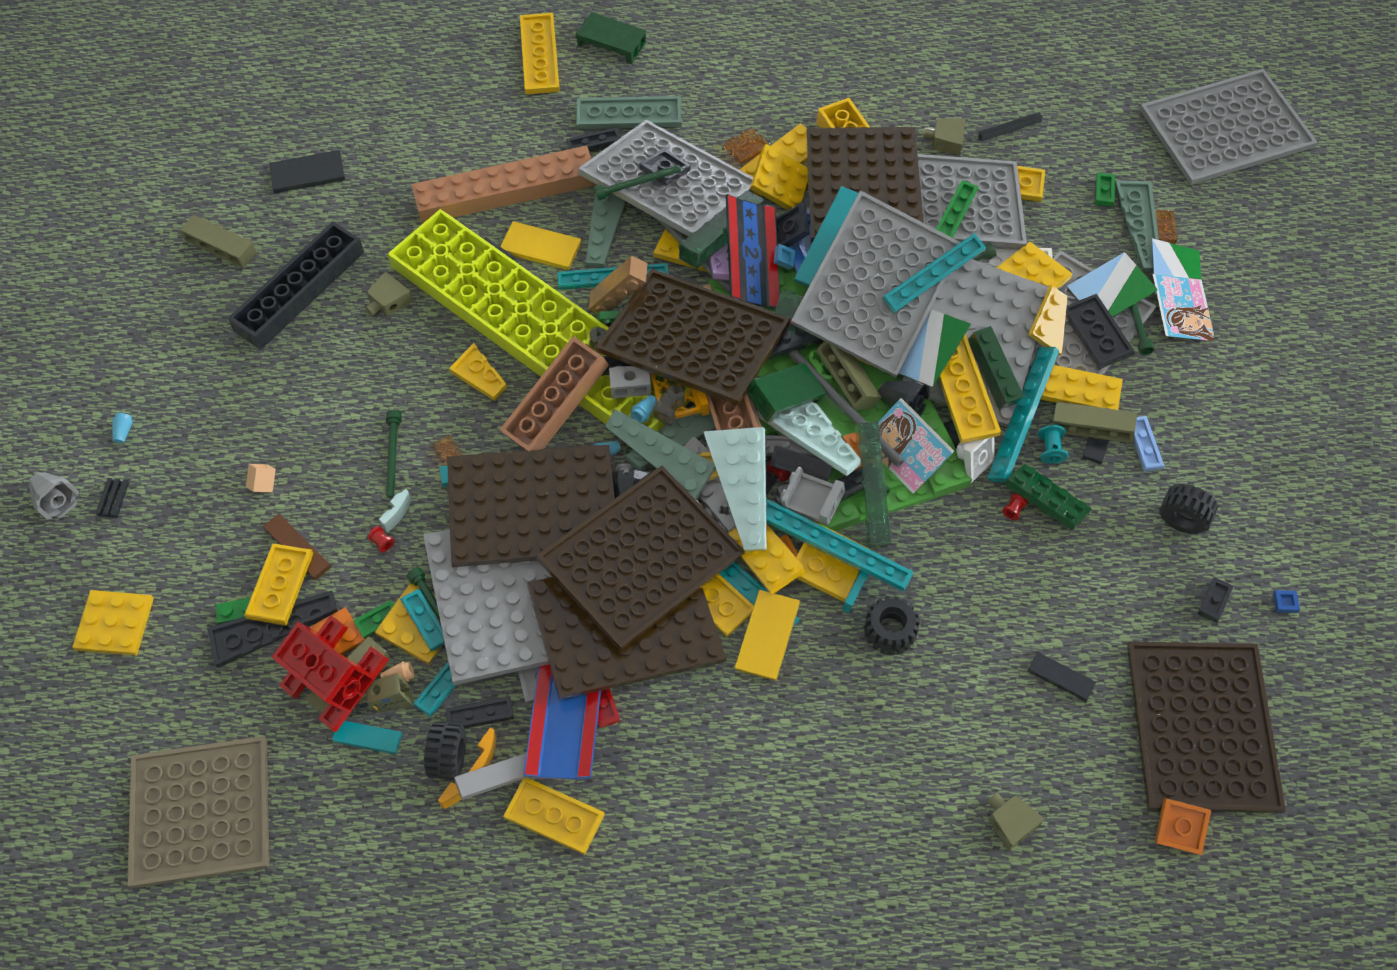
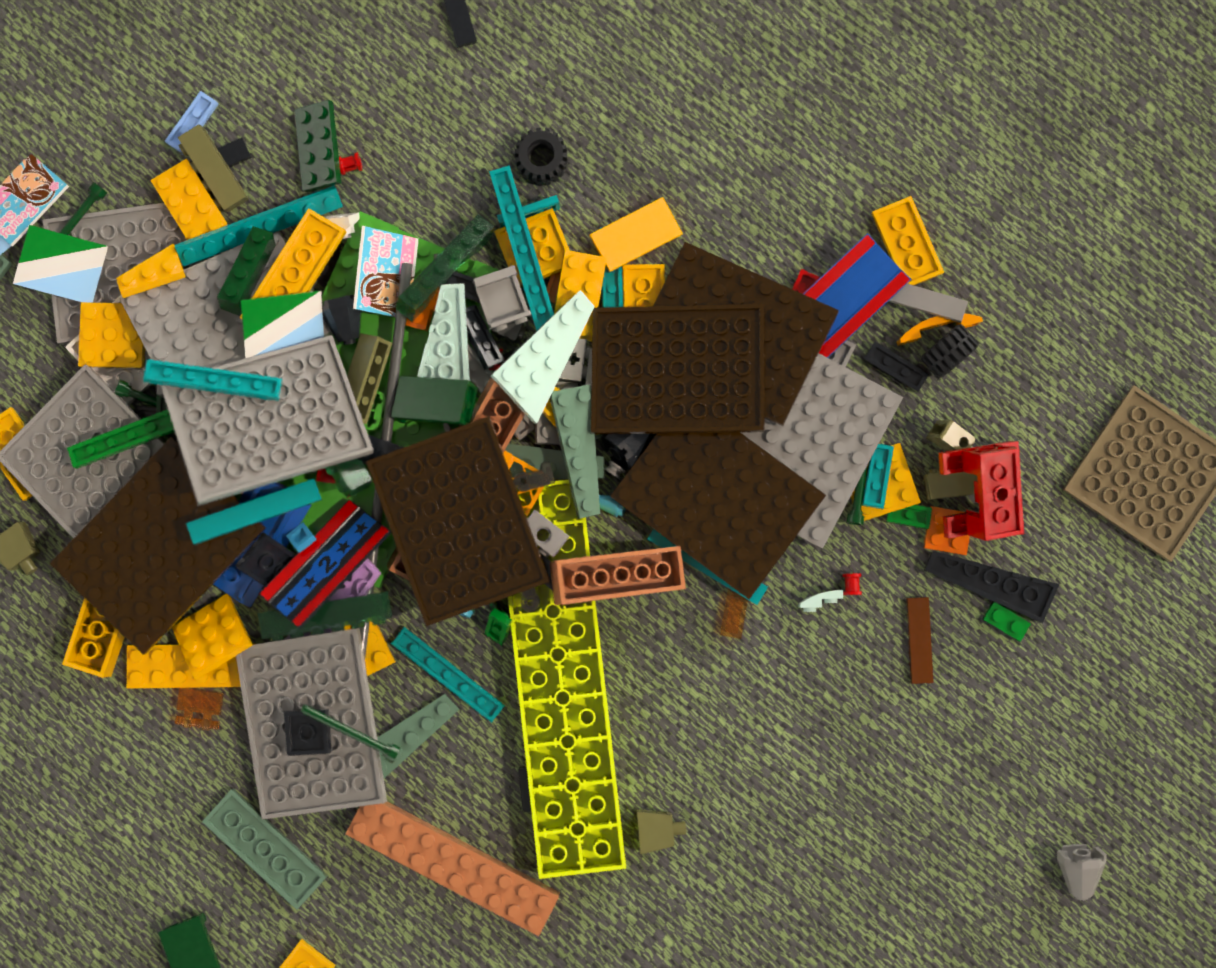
camera: 140 degrees left, 25 degrees up
(103, 500) = (1045, 813): black tile -> none
(113, 622) = (1107, 698): yellow plate -> none
(120, 427) = (978, 892): medium azure cone -> none
(260, 478) = (902, 732): light nougat panel -> none
(279, 584) = (961, 612): yellow tile -> none
(296, 285) = (725, 913): black brick -> none
(368, 737) = (987, 420): teal tile -> none
(393, 418) = (753, 692): dark green piece -> none
(404, 669) = (927, 452): light nougat cone -> none
(435, 692) = (913, 415): teal tile -> none
(477, 372) = (646, 676): yellow wing -> none
(541, 245) = (479, 767): yellow tile -> none
(595, 140) = (328, 843): black plate -> none
(618, 285) = (467, 639): medium nougat brick -> none
(643, 410) = (557, 497): medium azure cone -> none
(1052, 436) = (264, 183): teal hose -> none
(1098, 331) = (118, 238): black tile -> none
(1188, 509) = (231, 33): black tyre -> none

